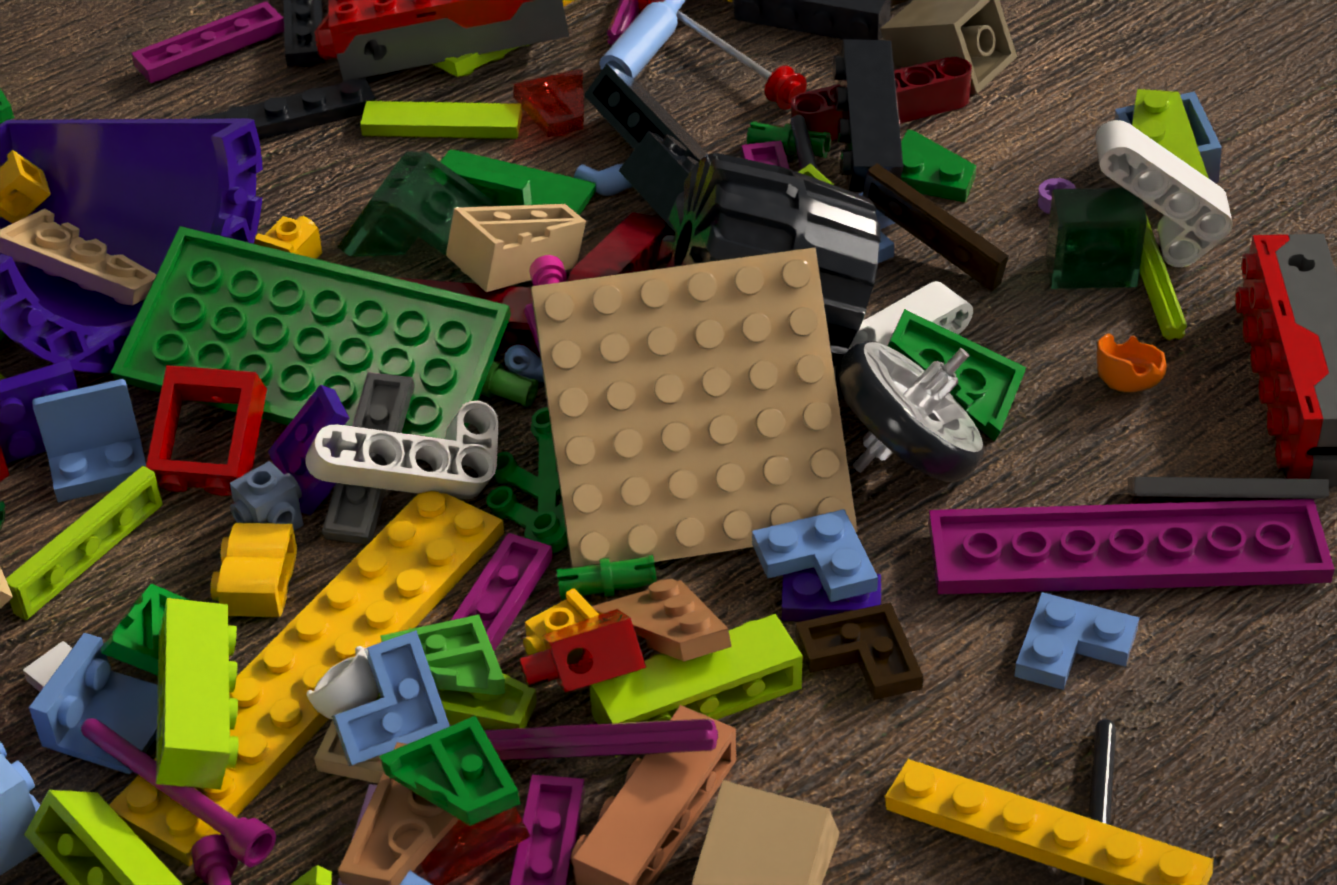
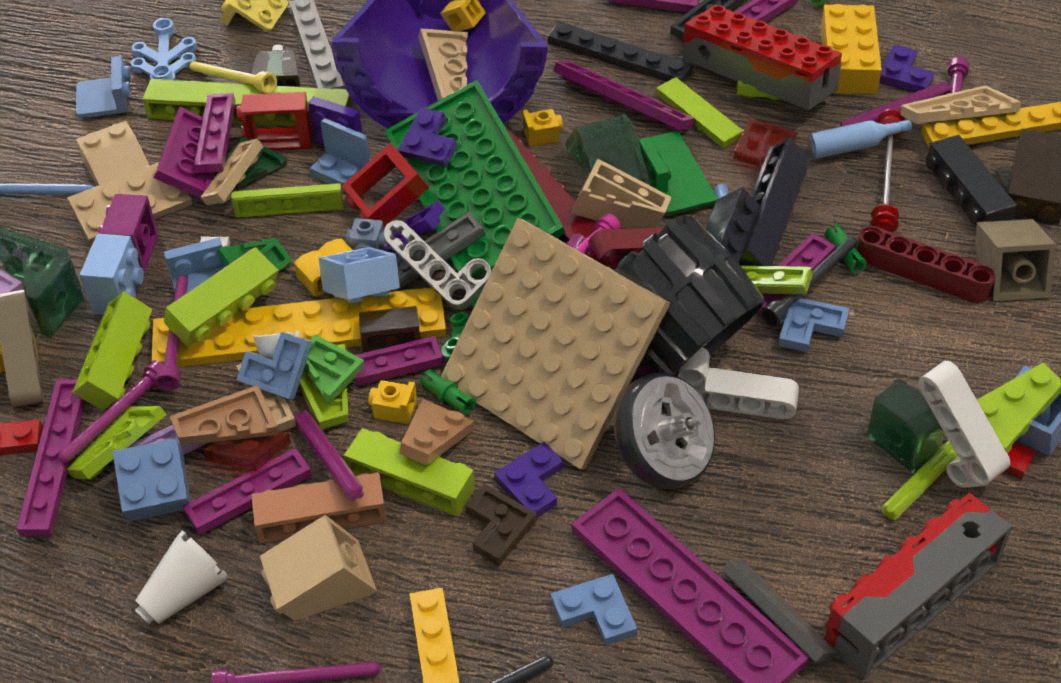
camera: 50 degrees right, 5 degrees up
(199, 344) = (423, 139): none -> dark purple plate
(331, 533) = (359, 274): none -> light blue brick
(357, 152) = (630, 98): none -> magenta plate
(444, 568) = (388, 327): none -> dark brown panel
(455, 772) = (250, 416): green wing -> none
(608, 652) = (375, 414): red torso -> none
(822, 543) = (542, 460): medium blue plate -> none
(868, 110) = (885, 264): black brick -> none
(935, 169) = (898, 321): green wing -> none
(935, 227) = (835, 352): dark brown tile -> none
(984, 379) = (738, 438): green wing -> none
(1129, 365) = (828, 505): orange hair -> none

